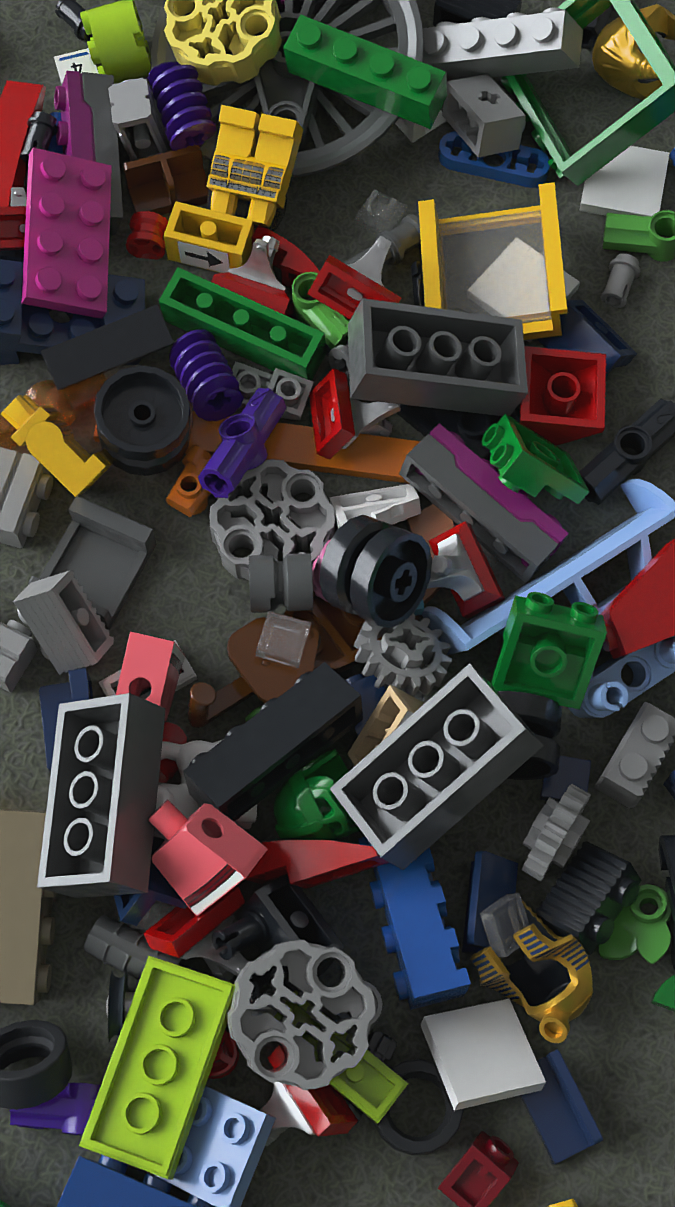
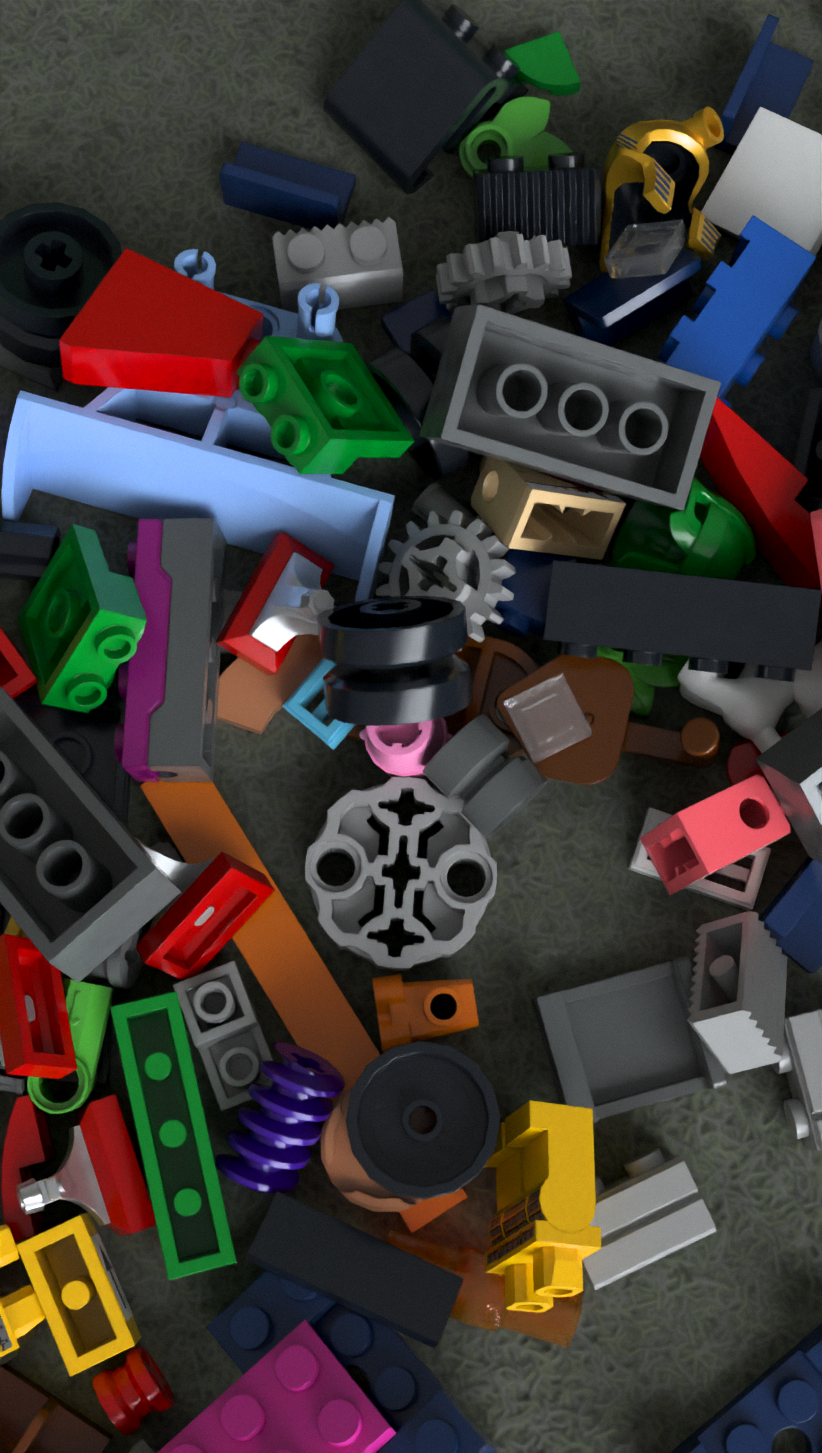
camera: 135 degrees left, 10 degrees up
(242, 443) = (375, 968): dark purple piece -> none
(385, 504) = (288, 770): white wing -> none

